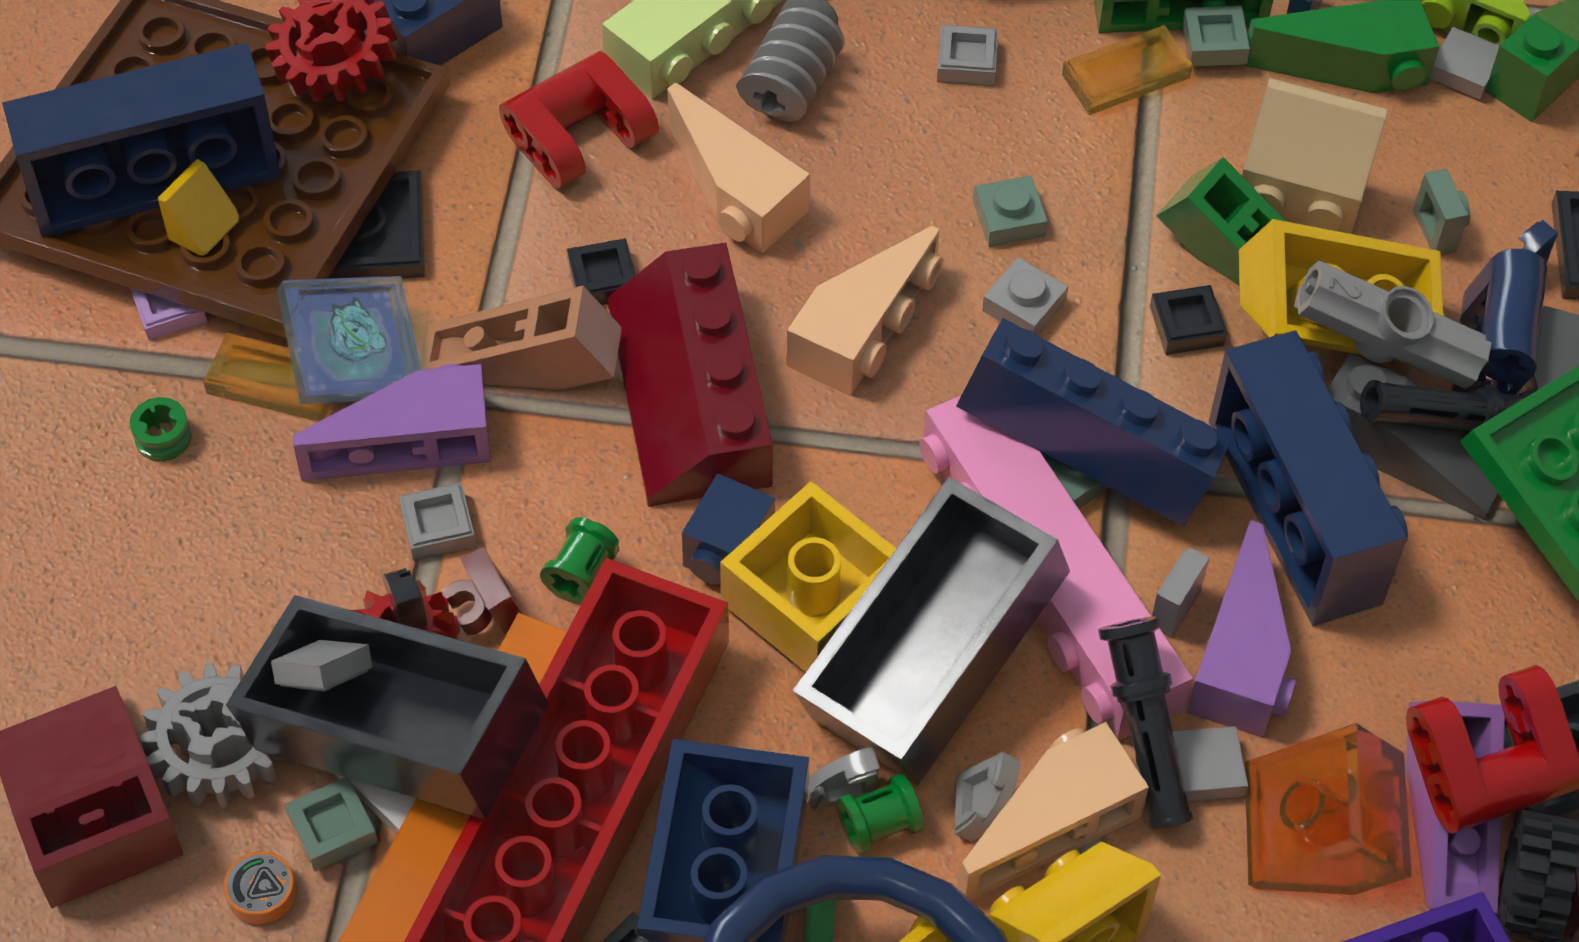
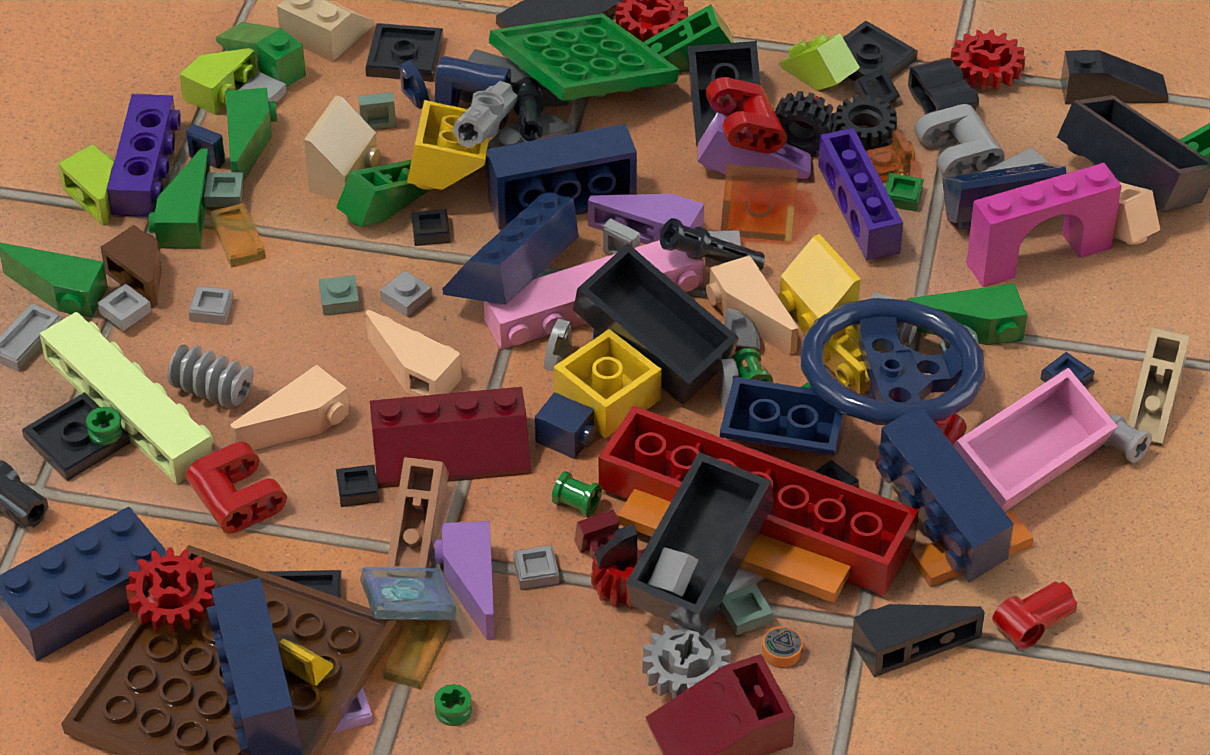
camera: 85 degrees left, 10 degrees down
(905, 509) = (558, 344): none -> light grey tile

